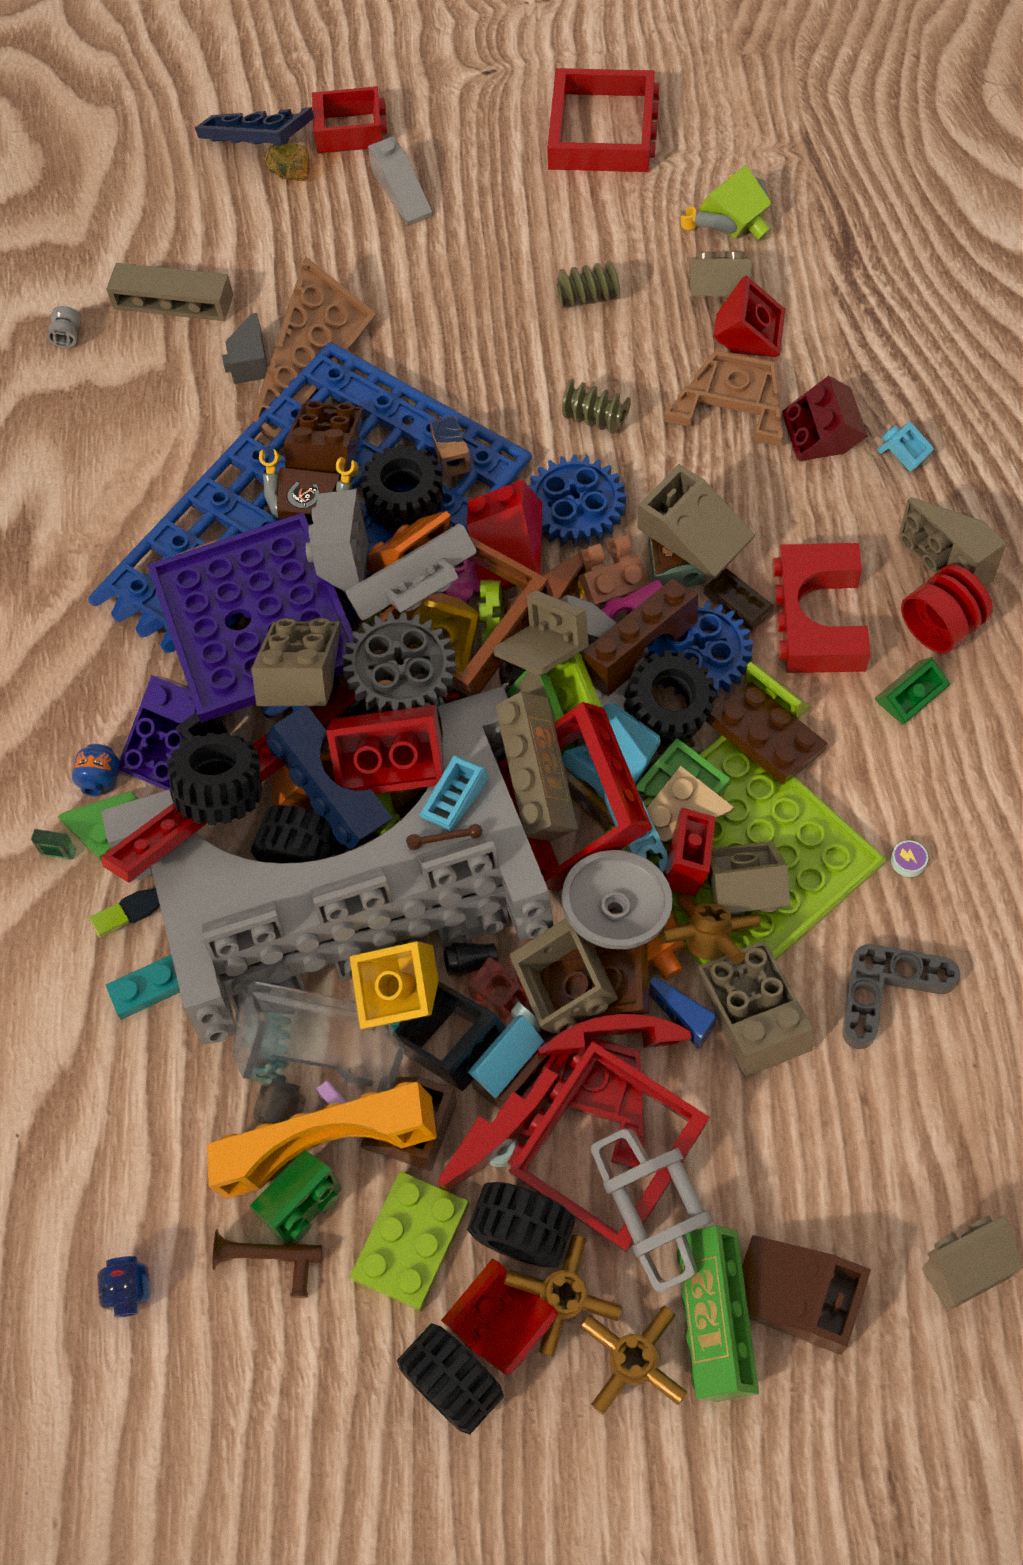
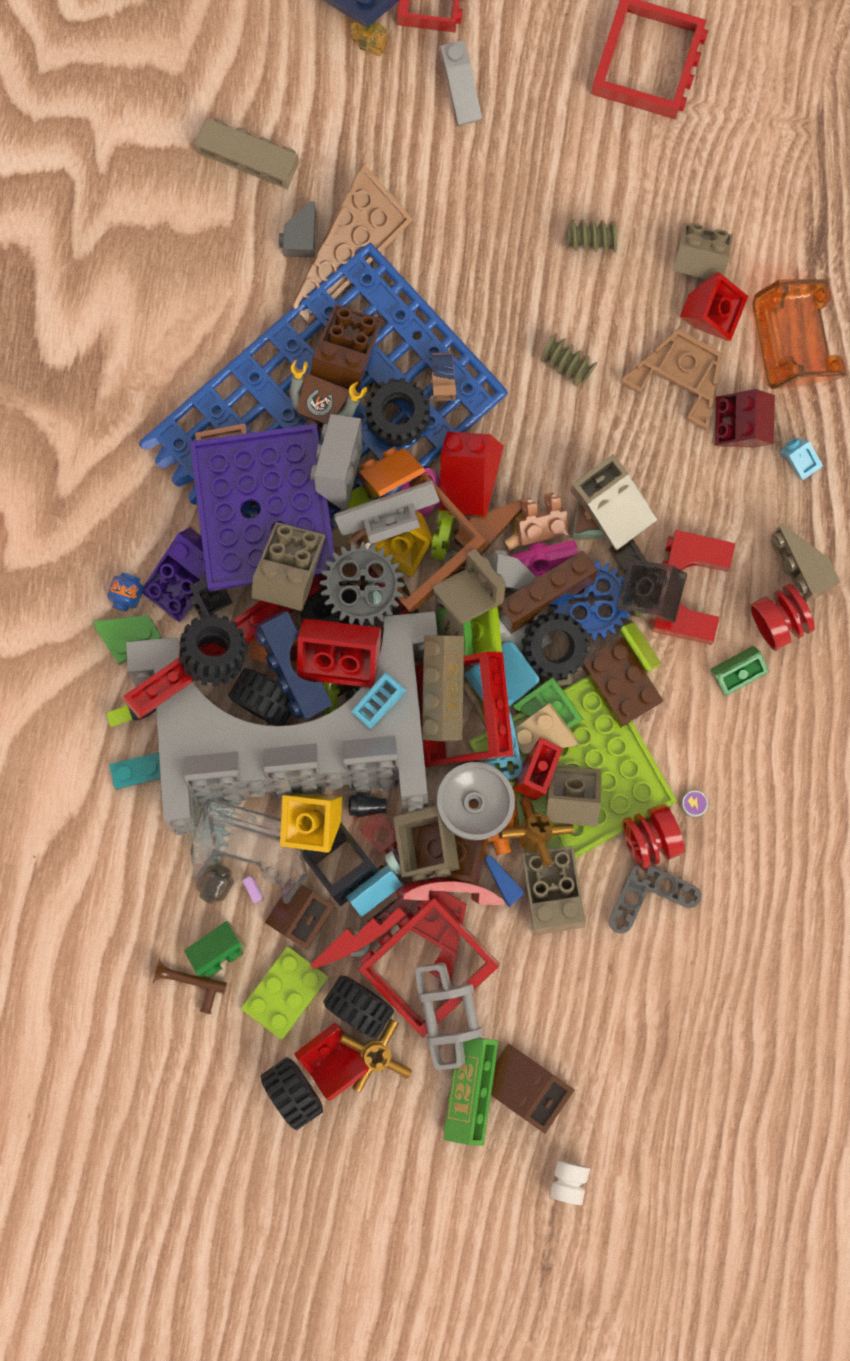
camera: 10 degrees right, 20 degrees up
(53, 844) = (86, 646): clear green tile -> none
(63, 327) = (154, 168): light grey wheel -> none
(123, 1286) = (93, 981): clear blue head -> none
(250, 1159) = (188, 918): light orange arch -> none
(415, 841) = (343, 731): reddish brown hinge -> none
(588, 507) = (530, 421): blue gear -> none
(636, 1374) = (411, 1095): pearl gold bar -> none
(733, 207) = (735, 185): lime torso -> none
(774, 607) = (652, 590): none -> clear smoke brick
(845, 327) = (794, 333): none -> clear orange windscreen
(870, 900) = (648, 838): none -> red wheel
(904, 1415) = (569, 1182): none -> white wheel
(974, 1262) = (643, 1098): dark tan slope -> none

